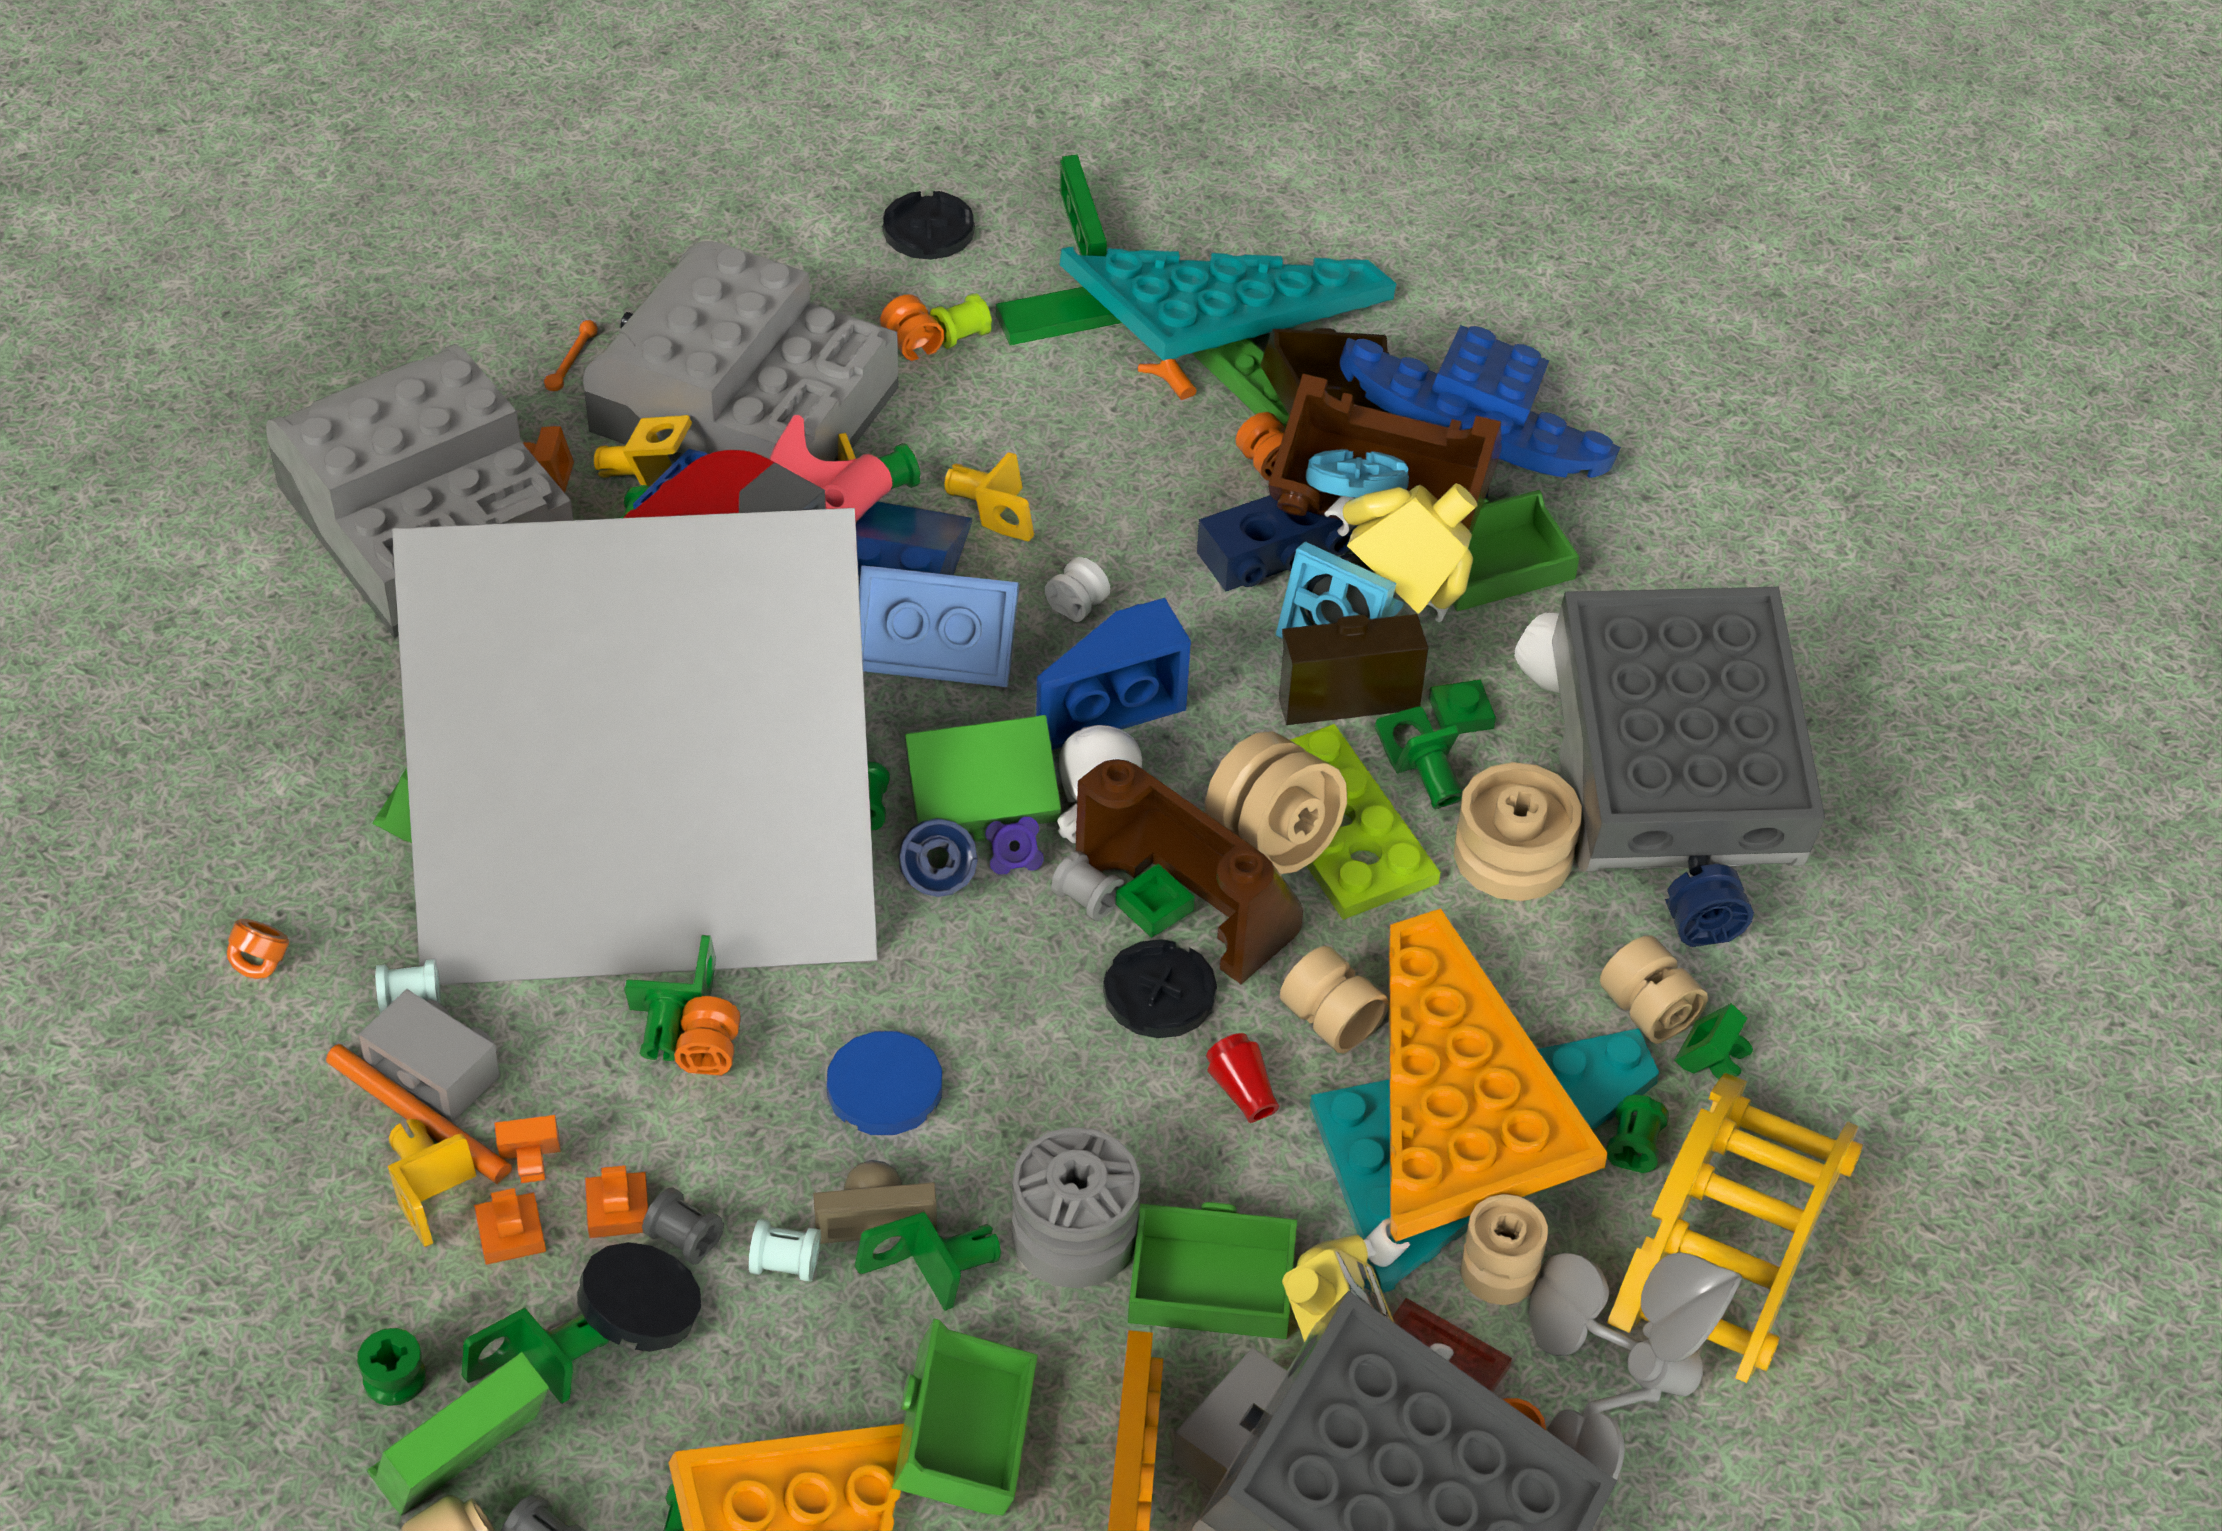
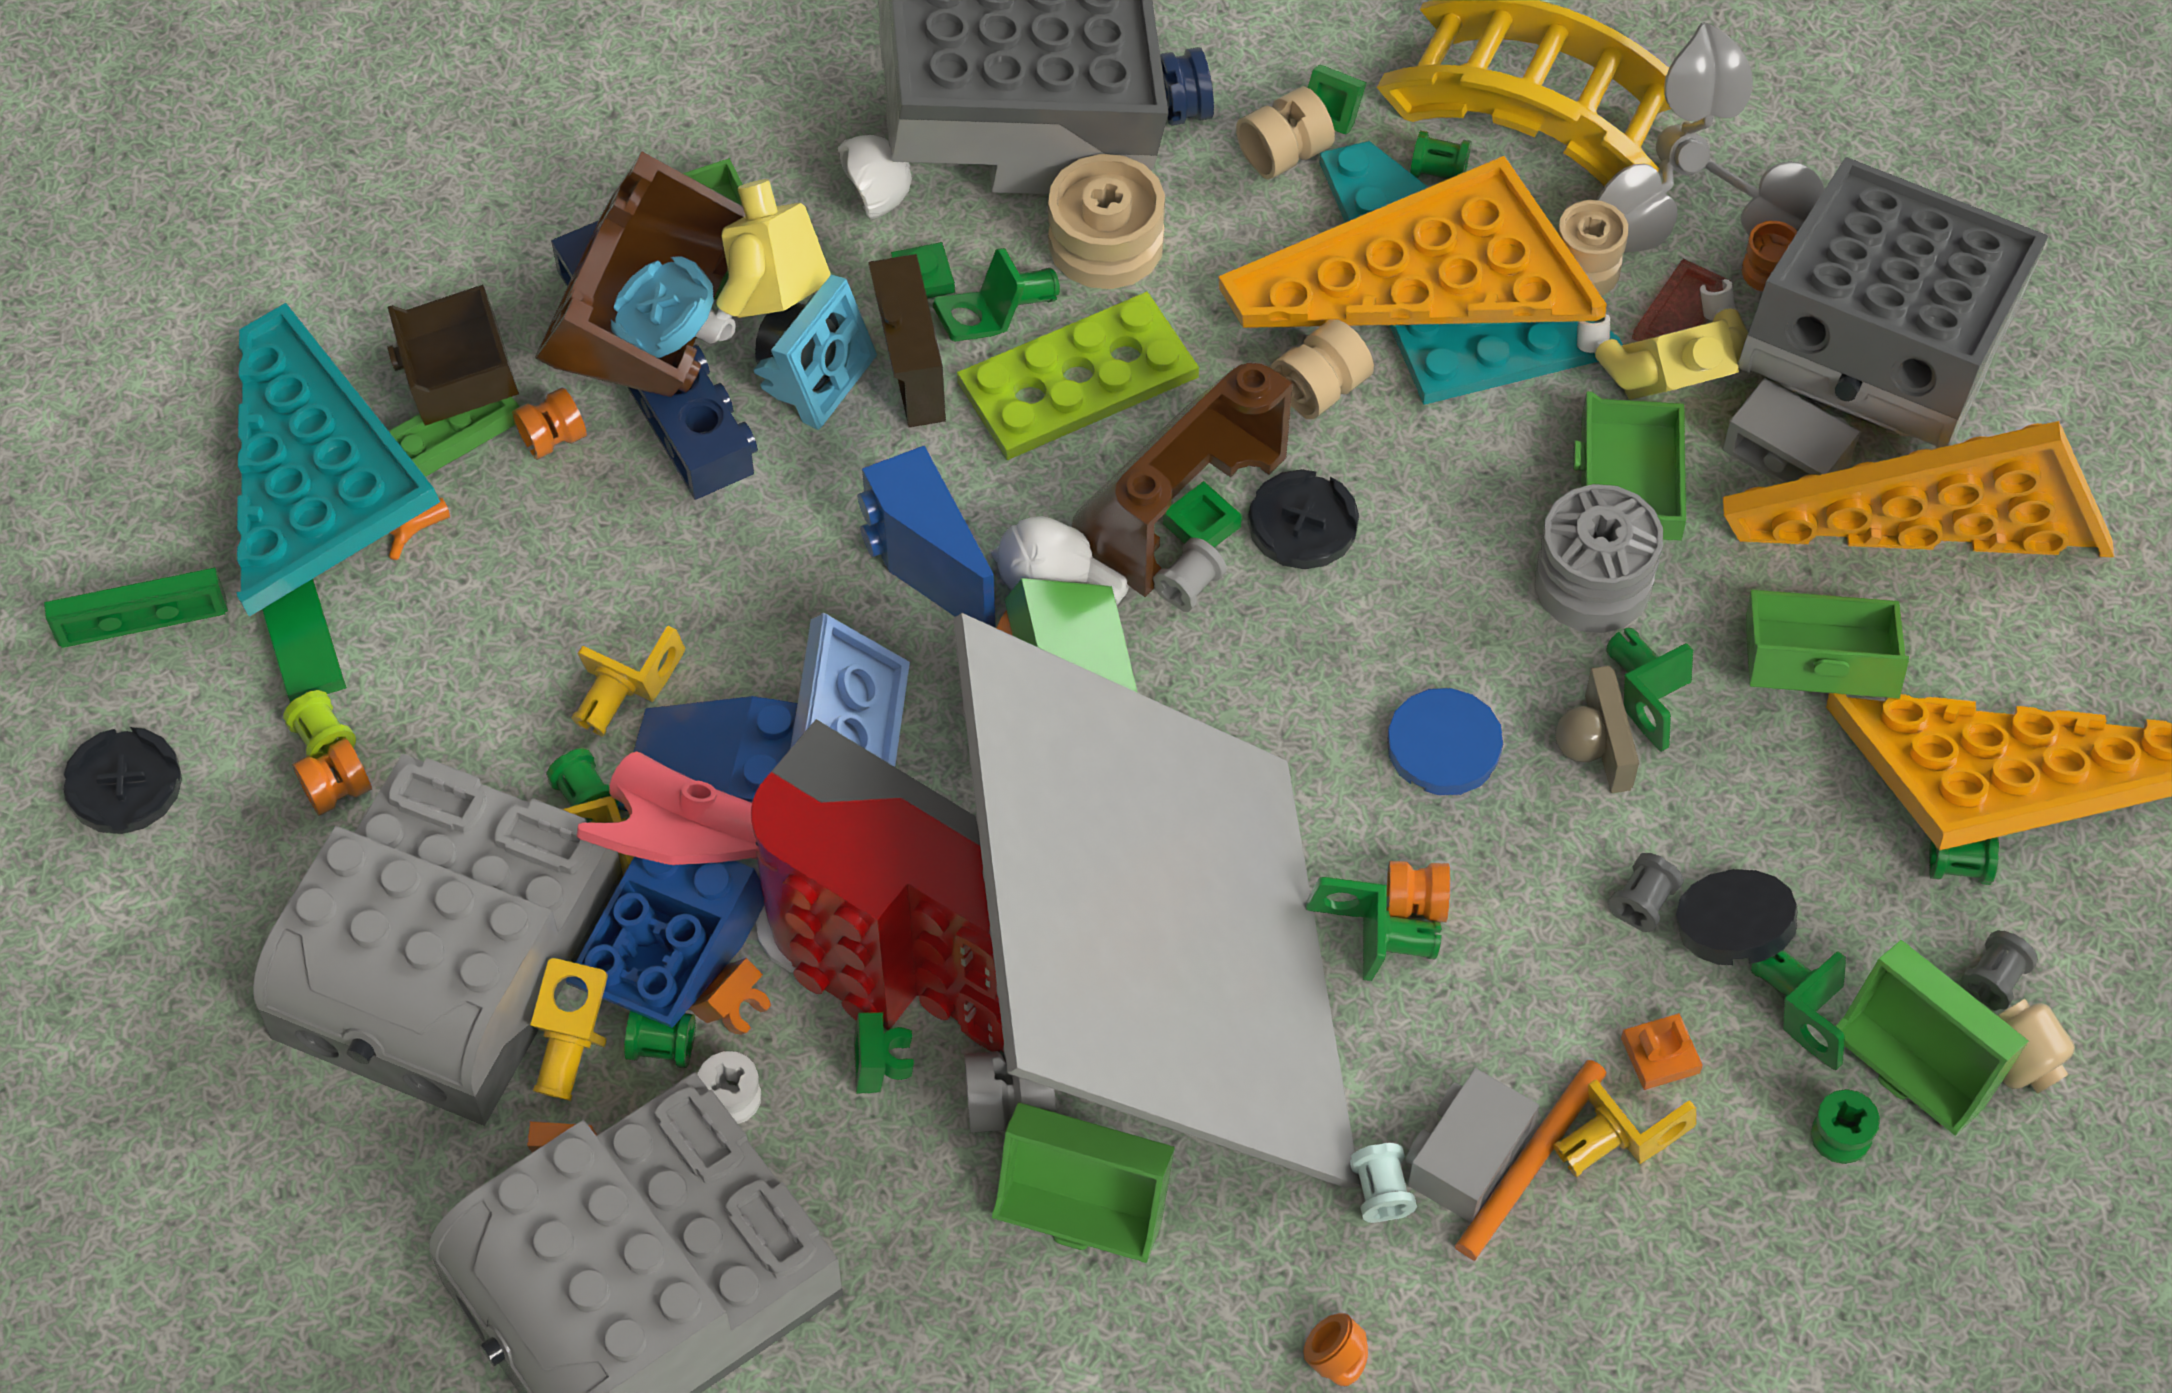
camera: 90 degrees left, 10 degrees up
(527, 1142) = (1570, 1037): orange tile -> none
(555, 381) = (394, 1174): orange hinge -> none
(616, 1202) = (1620, 959): orange tile -> none
(784, 1250) = (1674, 786): light aqua bush -> none
(961, 857) = (1181, 685): dark blue wheel -> none
(1000, 838) = (1144, 639): dark purple plate -> none
(1077, 589) = (773, 594): white wheel -> none
(1242, 1074) = (1408, 446): red cone -> none
(1278, 799) = (1118, 388): tan wheel -> none
(1482, 380) = (508, 224): blue plate -> none

